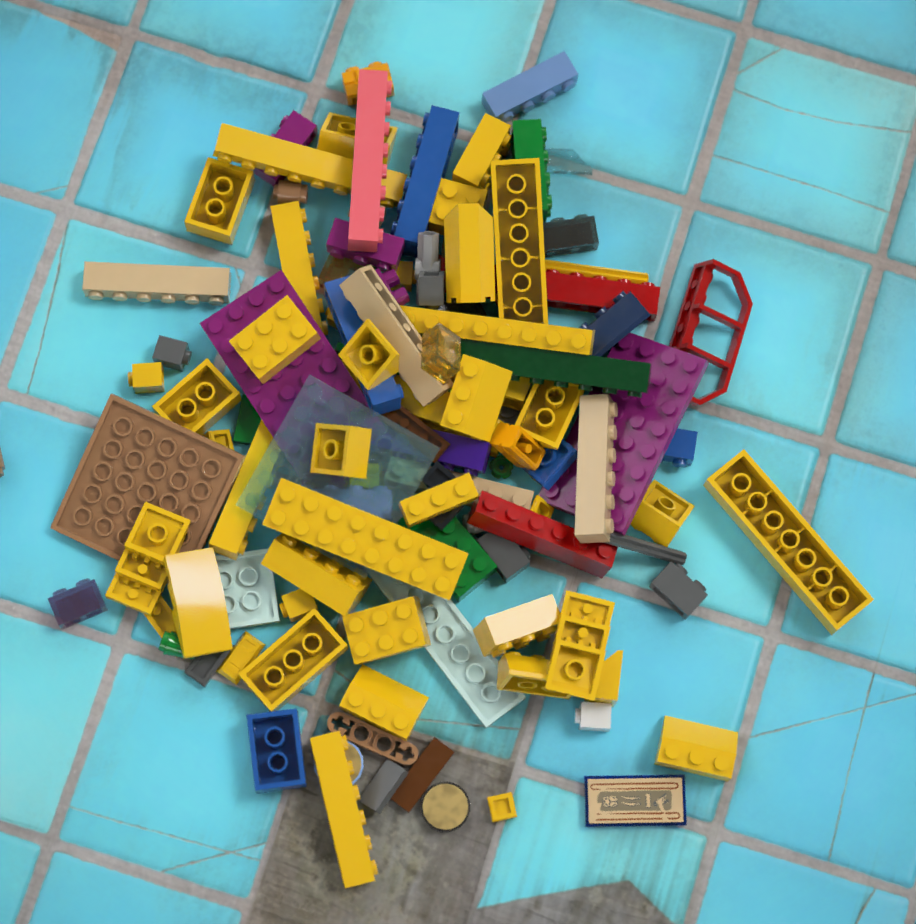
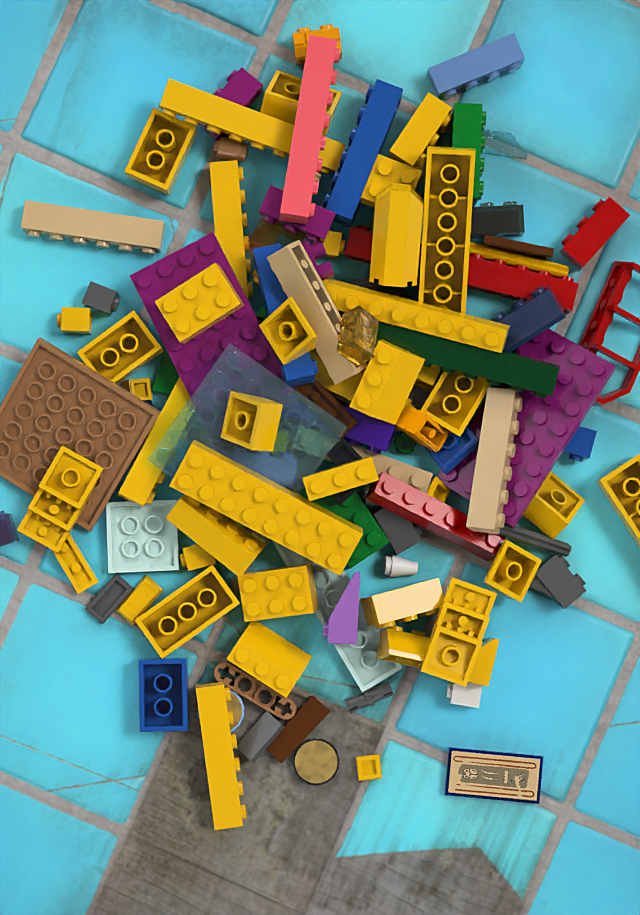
camera: 10 degrees right, 10 degrees up
(170, 645) = (79, 585): green cone -> none
(198, 602) = (103, 548): yellow slope -> none
(428, 255) = (355, 244): light grey piece -> none
(431, 289) = (356, 266): dark grey brick -> none
(458, 649) = (344, 617): none -> medium lavender slope
(494, 732) = (369, 697): none -> dark grey pin
(509, 593) = (397, 566): none -> white cone
(599, 259) = (523, 248): none -> reddish brown tile
(628, 582) = (512, 571): none -> yellow slope
(669, 237) = (593, 232): none -> red brick
(697, 748) = (558, 732): yellow slope -> none

